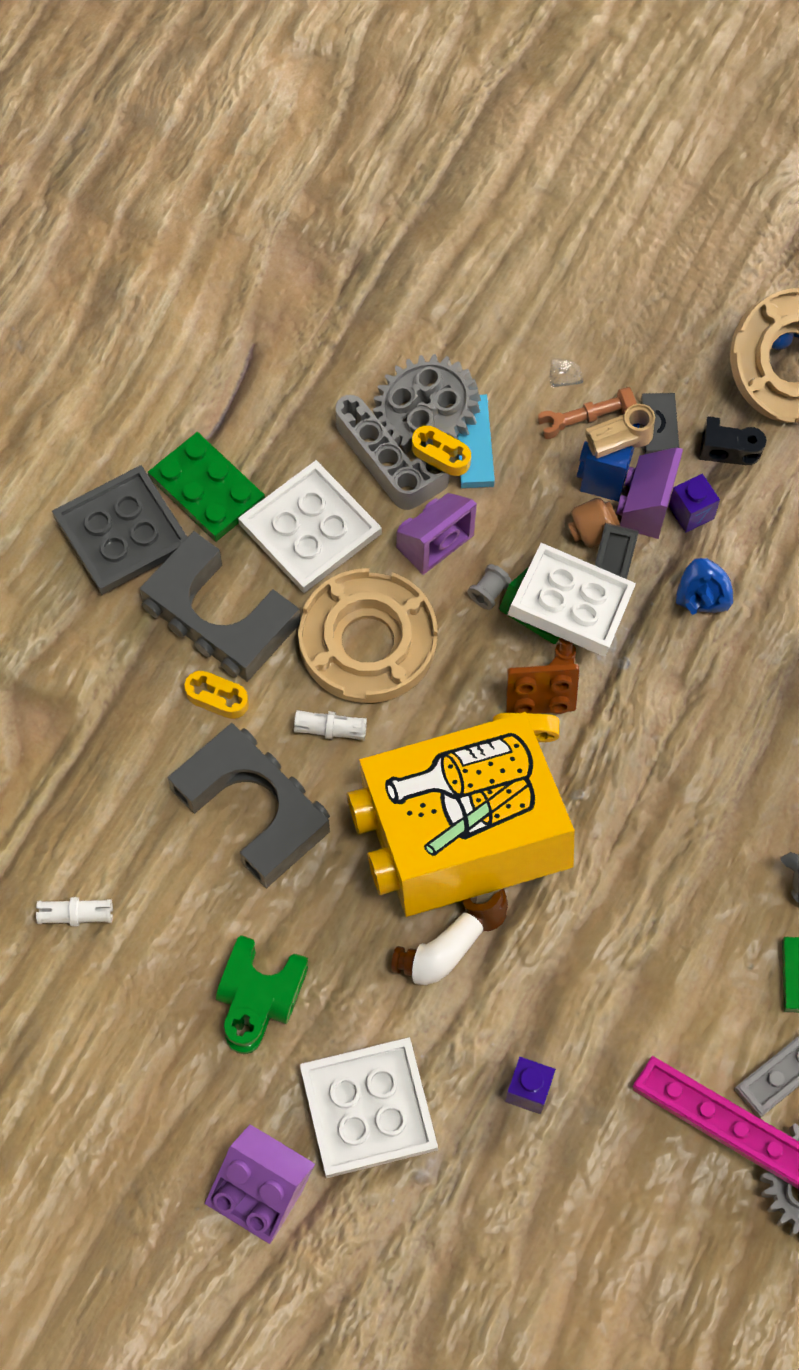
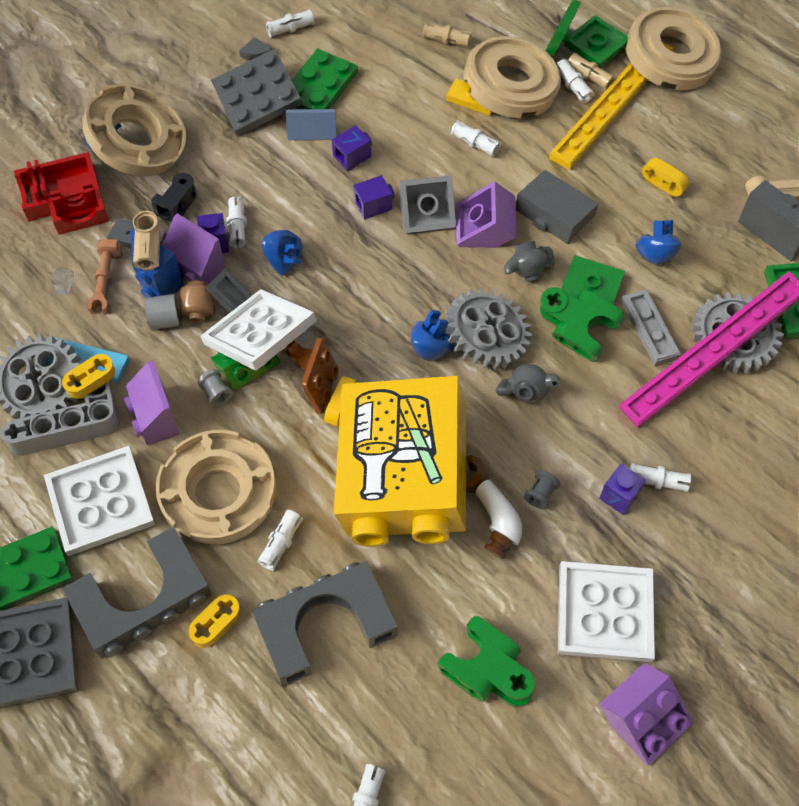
camera: 70 degrees left, 5 degrees down
(496, 991) = (542, 489): none -> dark grey bush
(563, 491) = (162, 312): none -> light grey piece
(568, 1130) = (663, 478): none -> white pin
(632, 933) = (528, 383): none -> dark grey piece
(648, 799) = (429, 337): none -> blue piece
(672, 838) = (487, 329): none -> light grey gear
(682, 323) = (64, 191): none -> red piece
(727, 523) = (236, 222): none -> white pin
(753, 966) = (576, 316): none -> green piece

